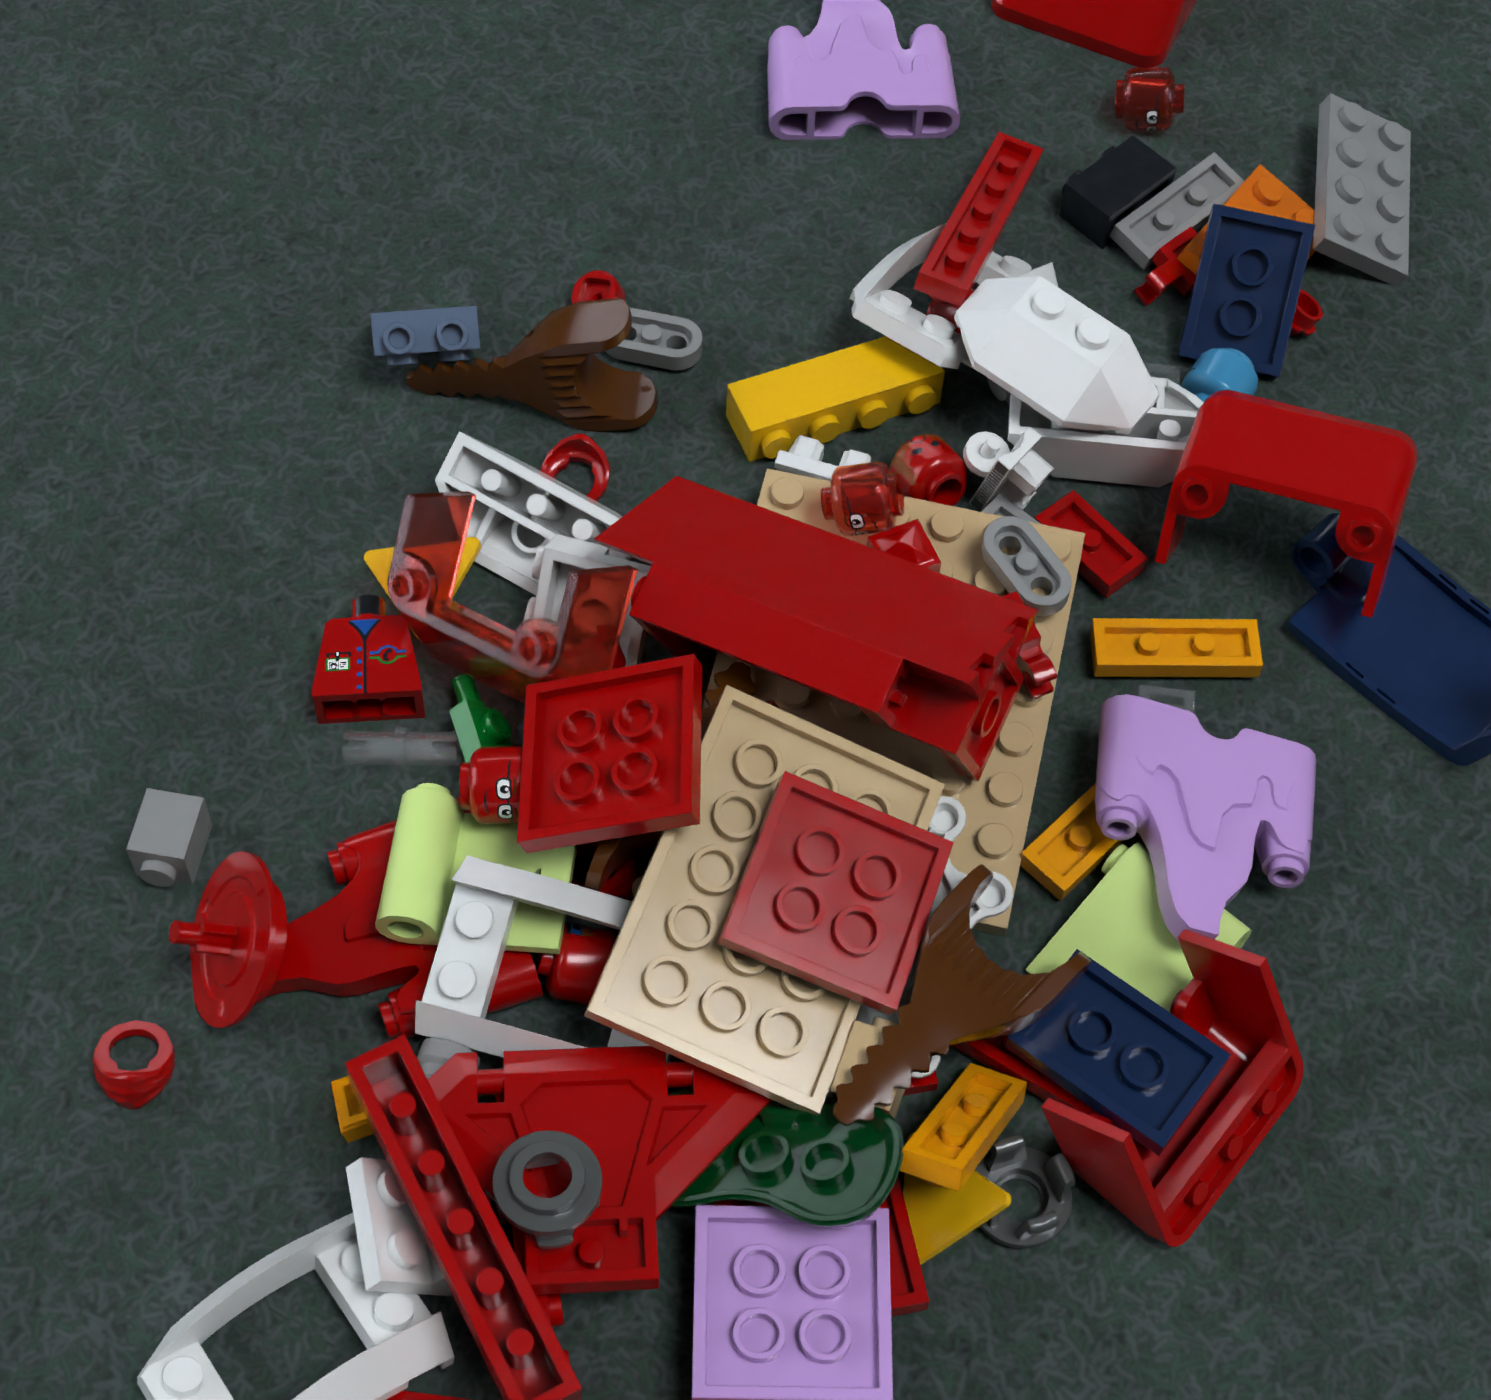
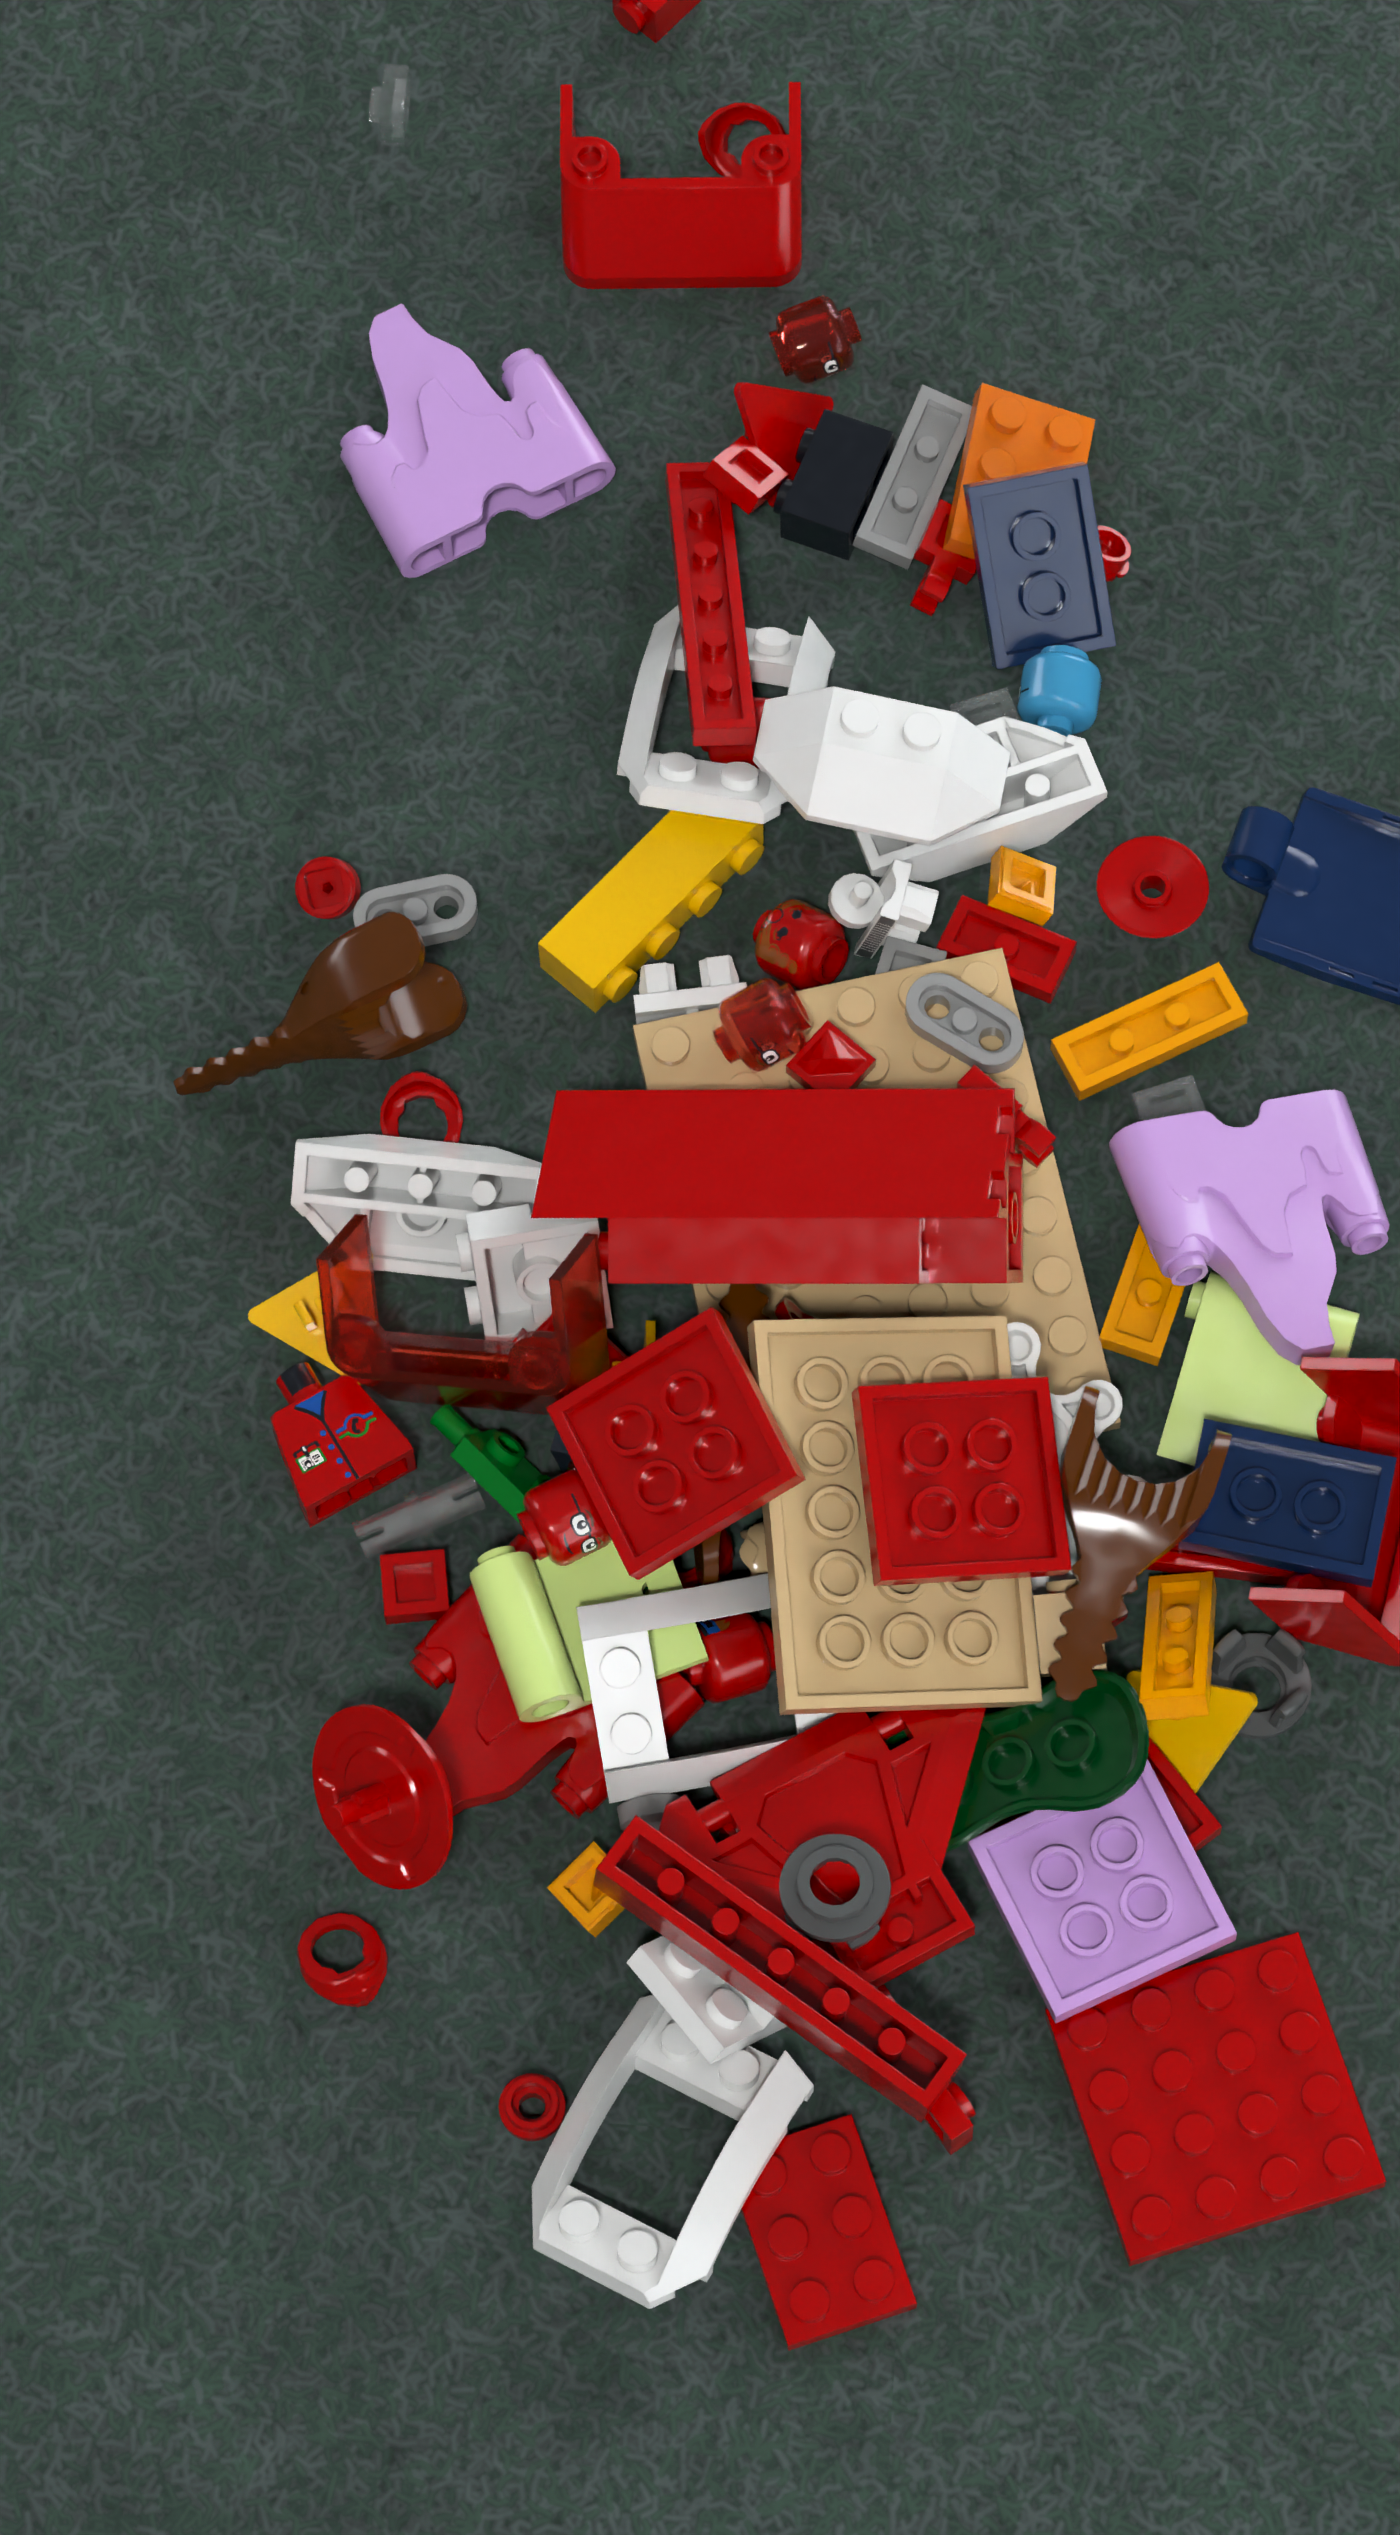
camera: 20 degrees left, 10 degrees up
(169, 837) = (243, 1722): light grey brick -> none
(204, 1242) = (532, 2086): none -> red plate
(366, 797) = (414, 1586): none -> red plate
(410, 332) = (173, 1024): sand blue plate -> none
(1051, 152) = (745, 475): none -> red plate
(1089, 132) = (777, 420): none -> red piece
(1124, 503) = (1022, 885): none -> light orange tile
(1233, 531) = (1159, 865): none -> red piece
(1302, 457) = (1197, 782): red windscreen -> none
(1362, 190) = (1106, 356): light grey plate -> none

